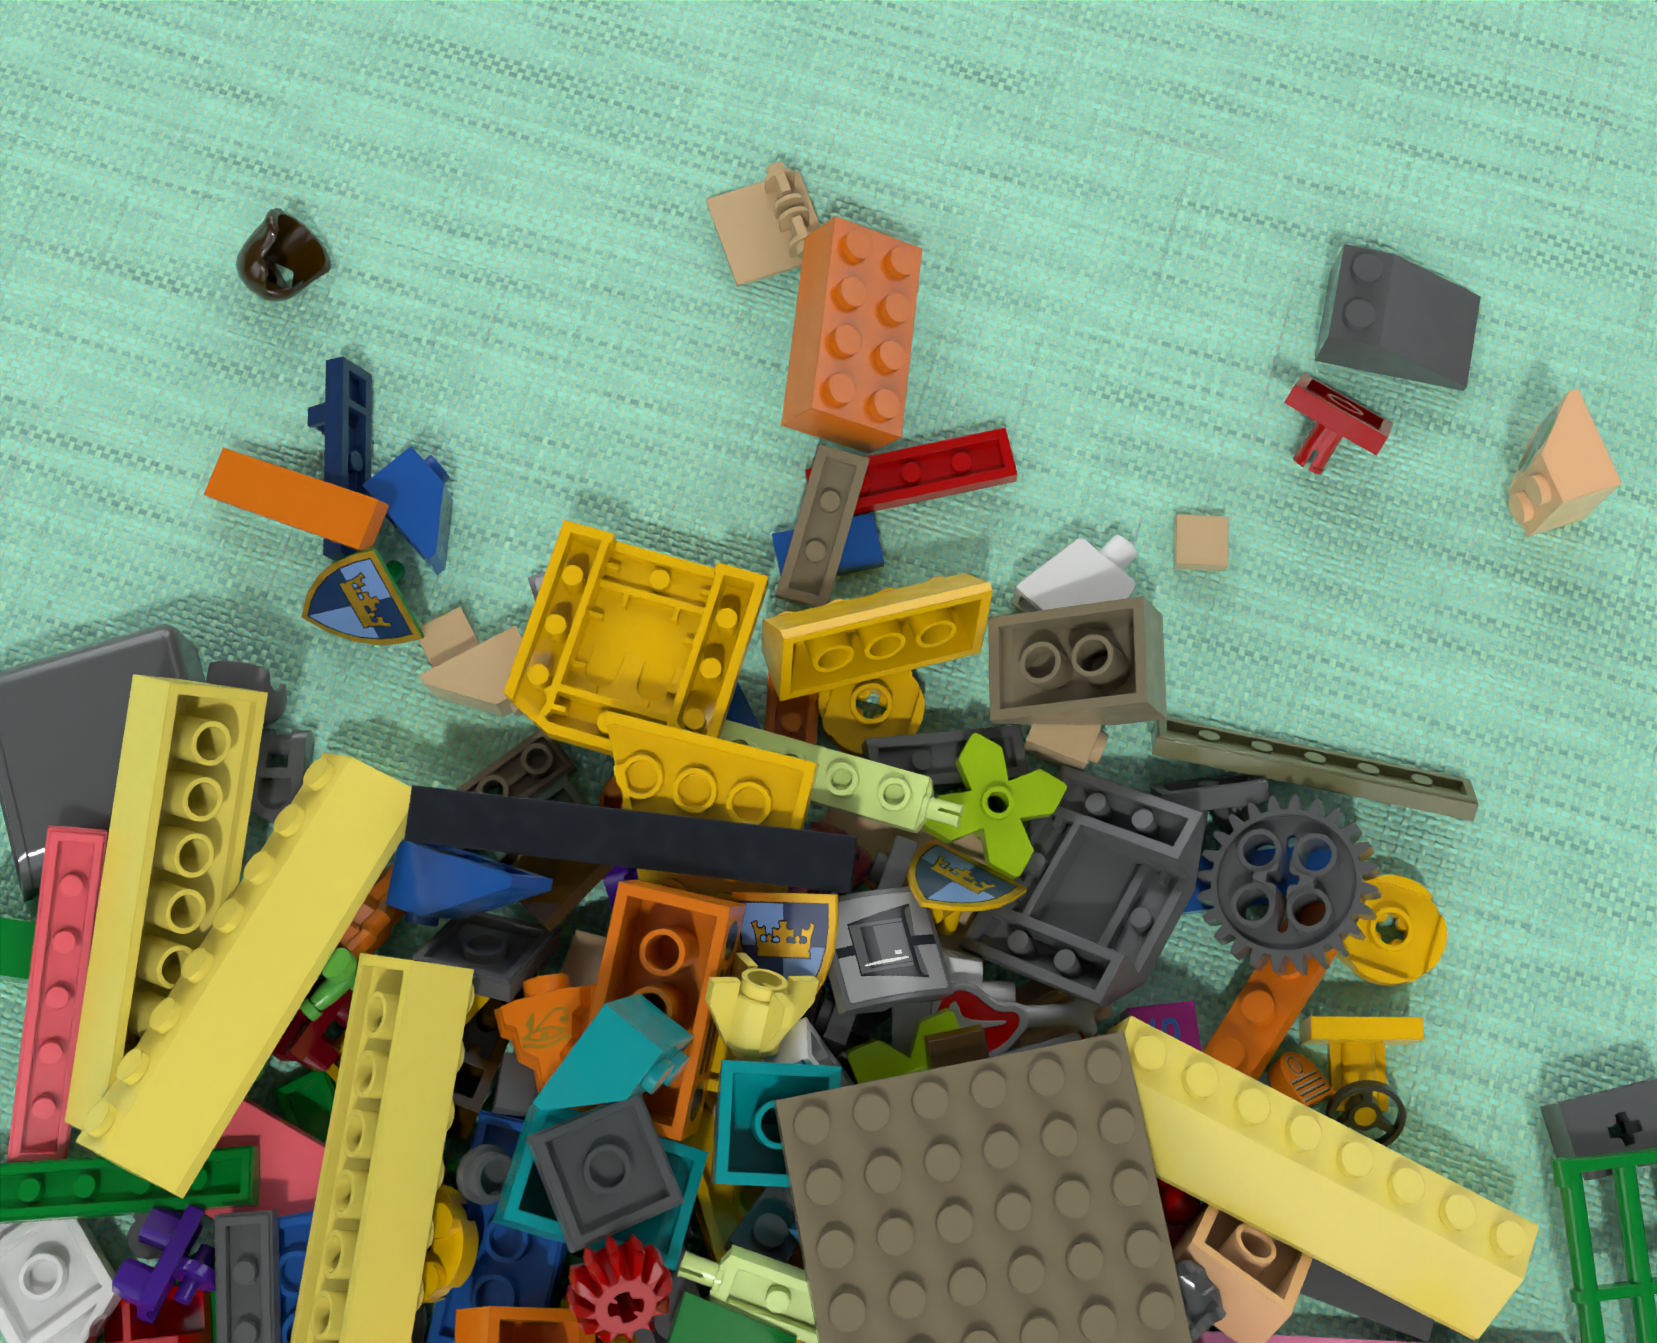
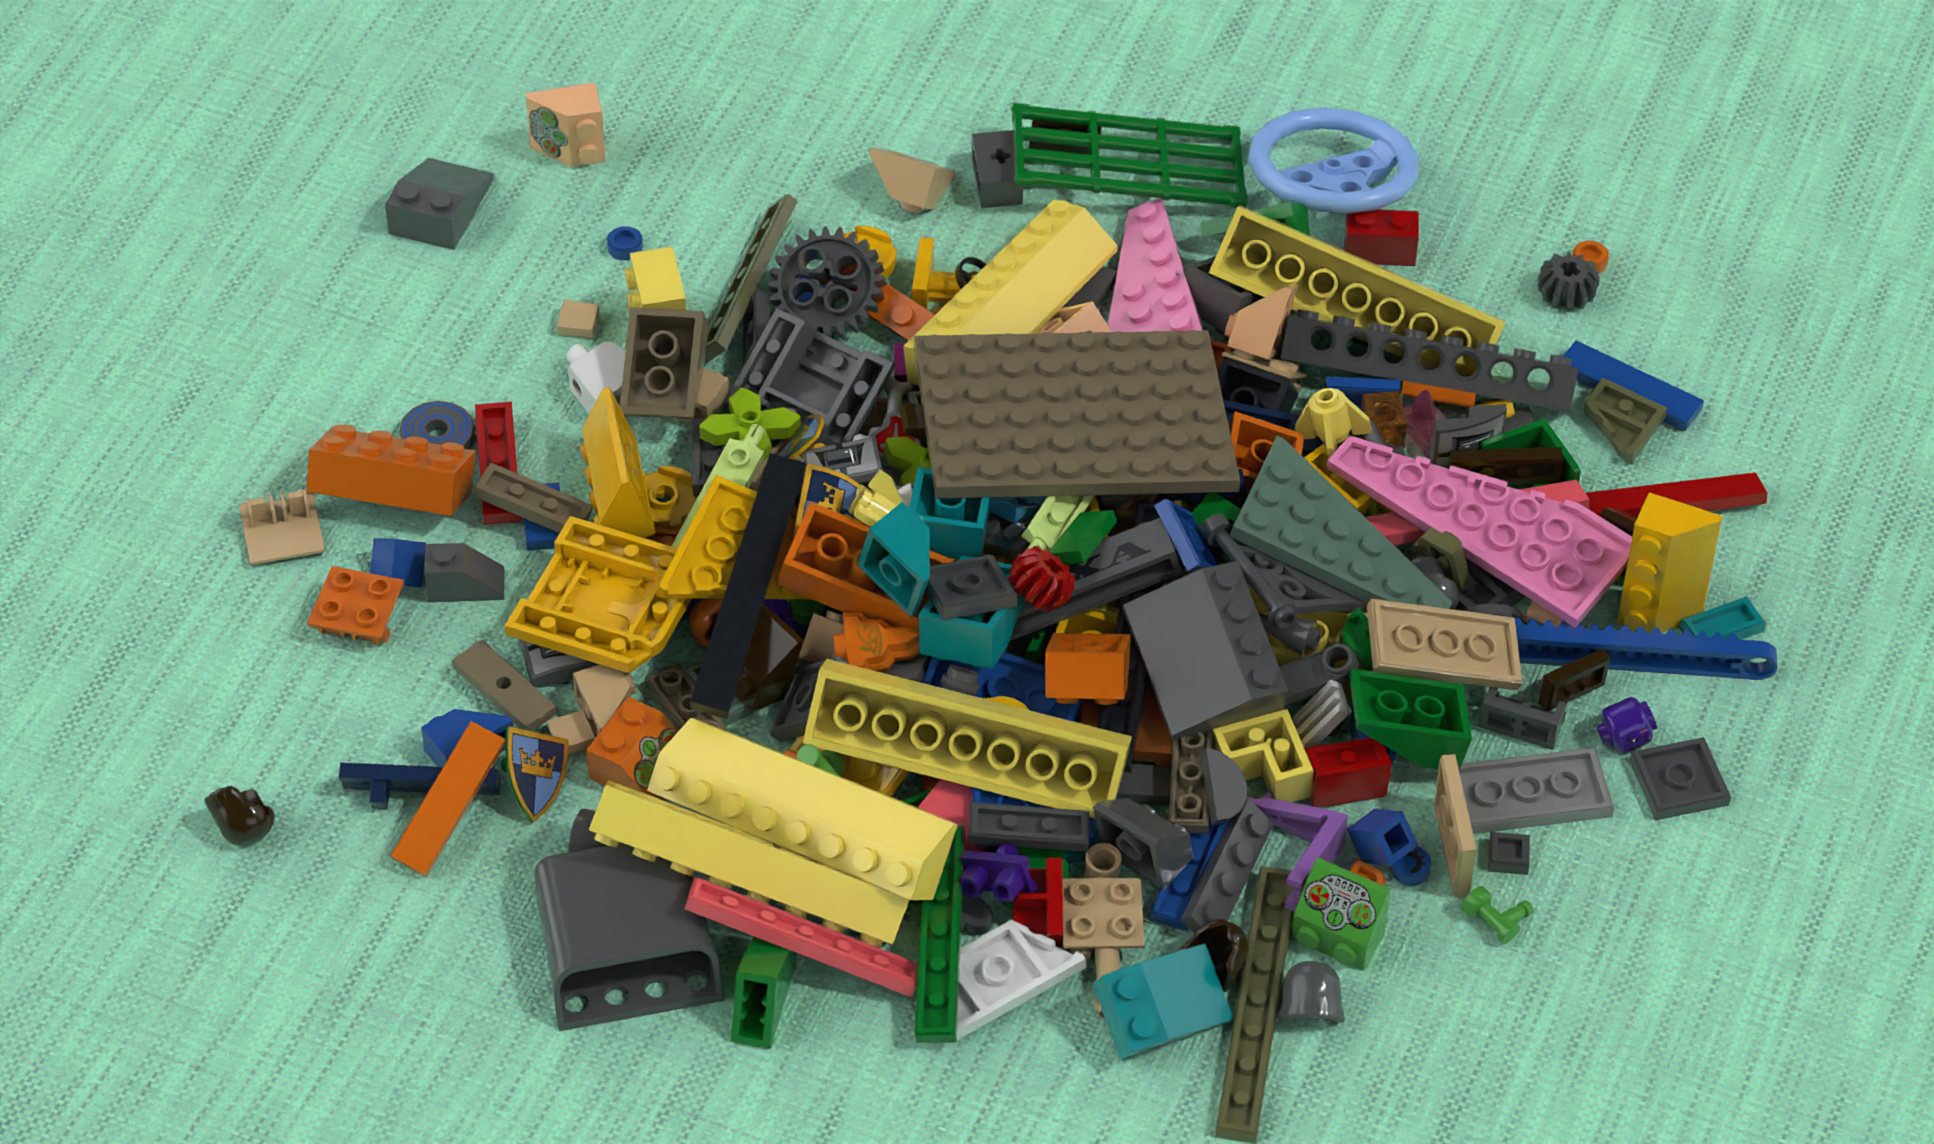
camera: 85 degrees left, 25 degrees down
(406, 728) = (629, 746): none -> orange slope
(454, 883) = (758, 705): blue slope -> none
(534, 520) = (504, 686): none -> dark tan tile
(628, 334) = (356, 605): none -> orange hinge
(700, 461) = (461, 574): none -> dark grey slope
(716, 376) = (399, 560): none -> blue panel
(970, 363) = (439, 416): none -> dark grey tile
(1227, 641) = (654, 280): none -> light yellow brick
(1335, 418) = (510, 231): red tile -> none
(1362, 586) = (623, 242): none -> blue tile
(1567, 988) = (911, 179): none -> tan slope

